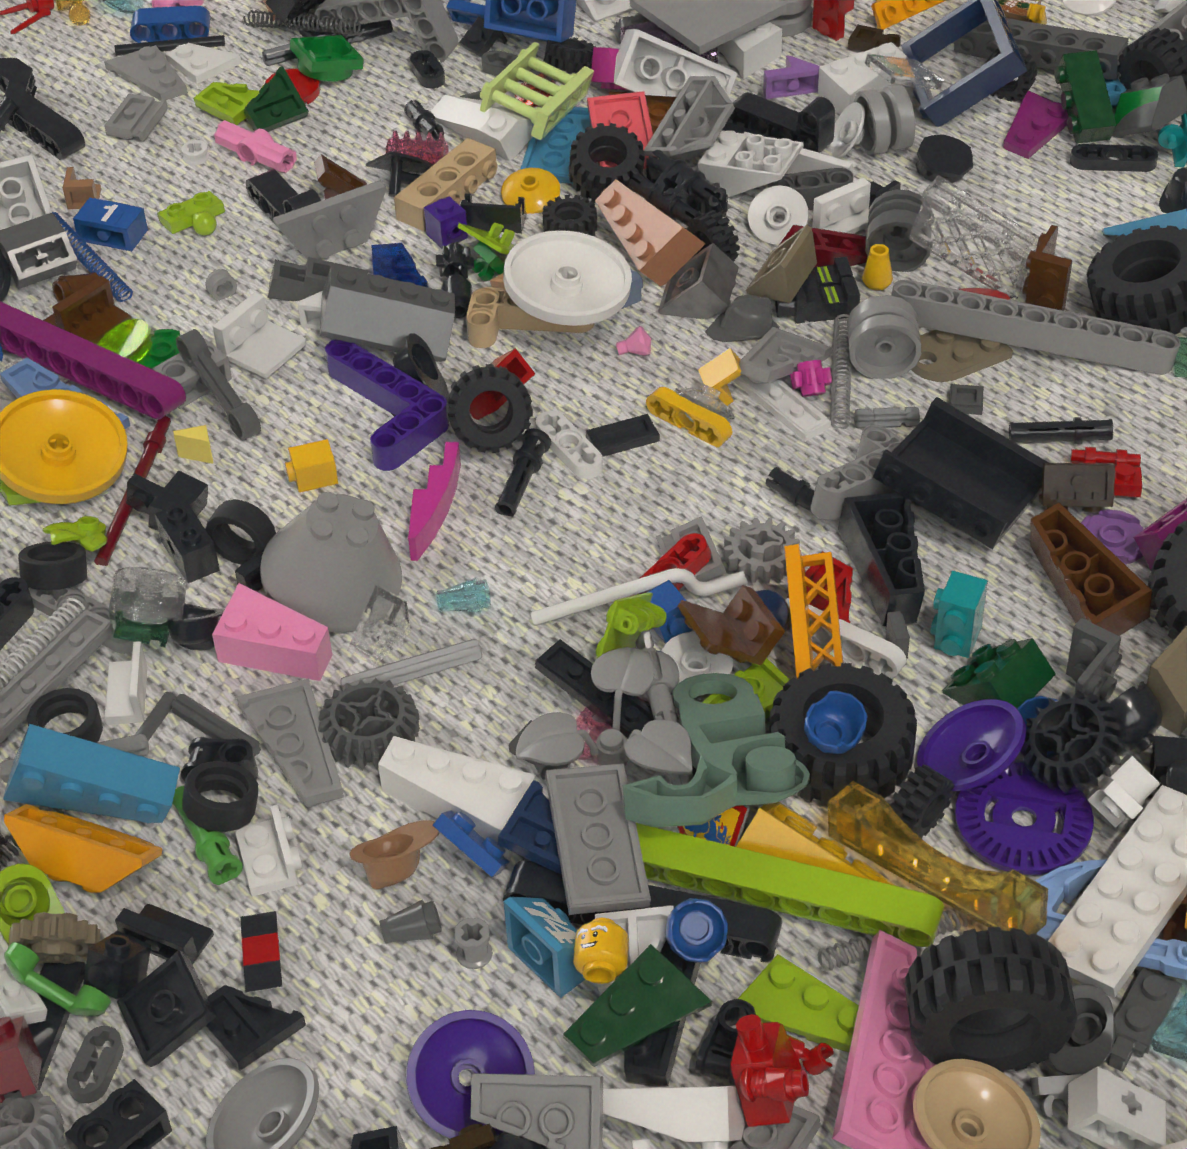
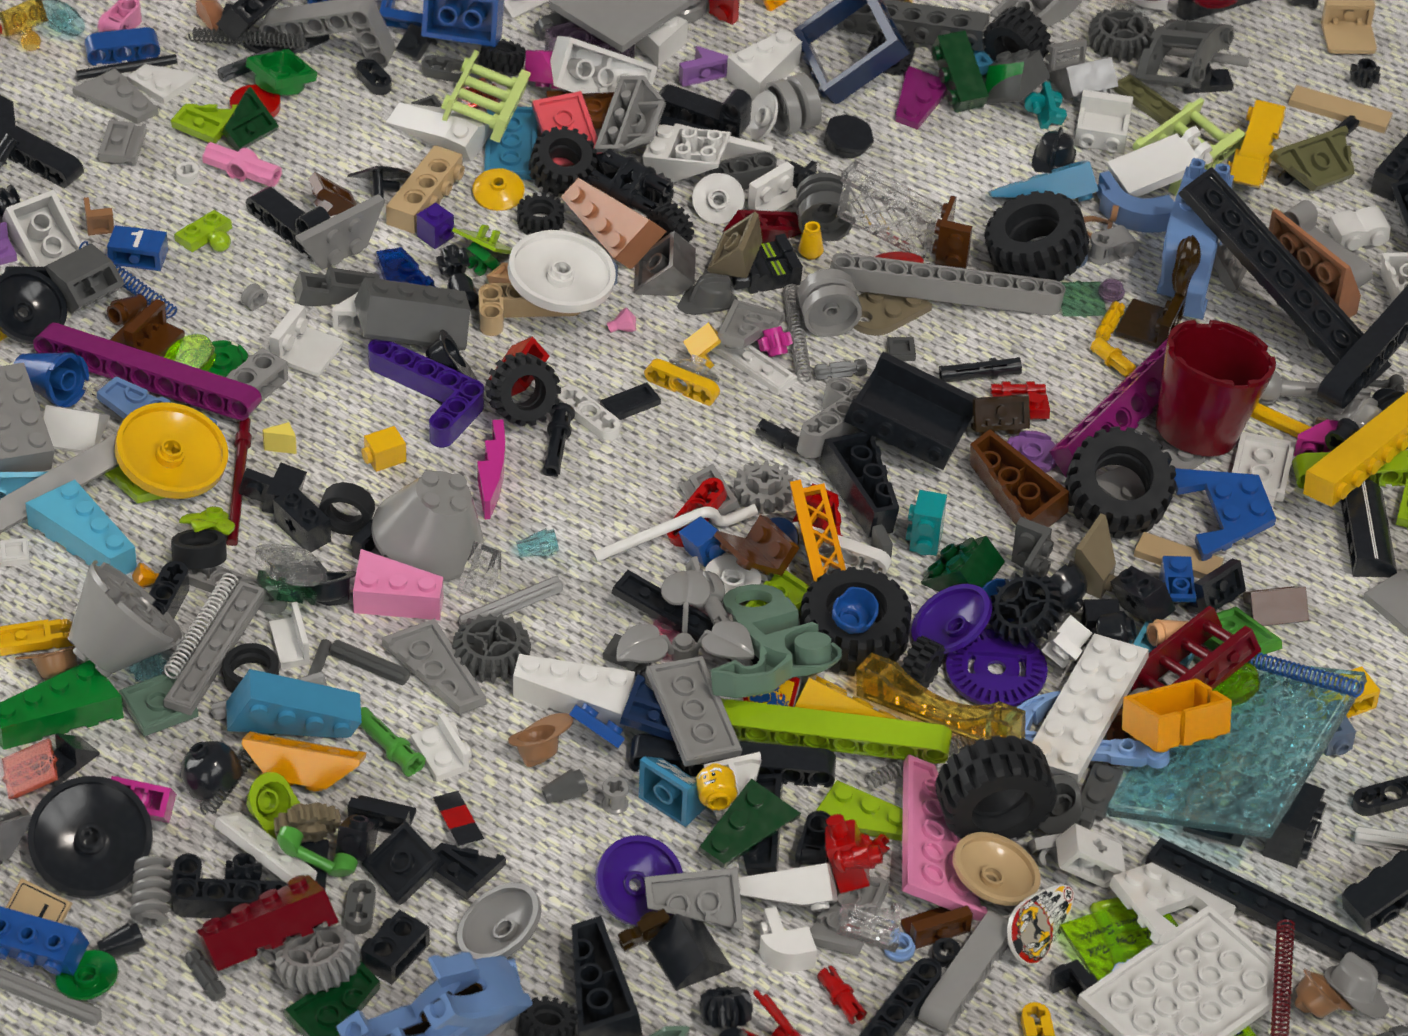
camera: 15 degrees left, 0 degrees up
(219, 815) = (396, 724): black tyre -> none
(225, 750) = (387, 688): black piece -> none
(240, 415) = (262, 359): dark grey piece -> none
(422, 119) = (386, 129): black pin -> none
(424, 149) = (390, 157): clear pink piece -> none
(484, 215) = (473, 217): black hinge -> none
(626, 621) = (679, 549): lime hinge -> none
(696, 930) = (780, 766): blue hair -> none
(867, 38) = (763, 23): dark brown plate -> none
(904, 71) = (803, 58): clear tile -> none
(1142, 157) = (996, 119): black beam -> none

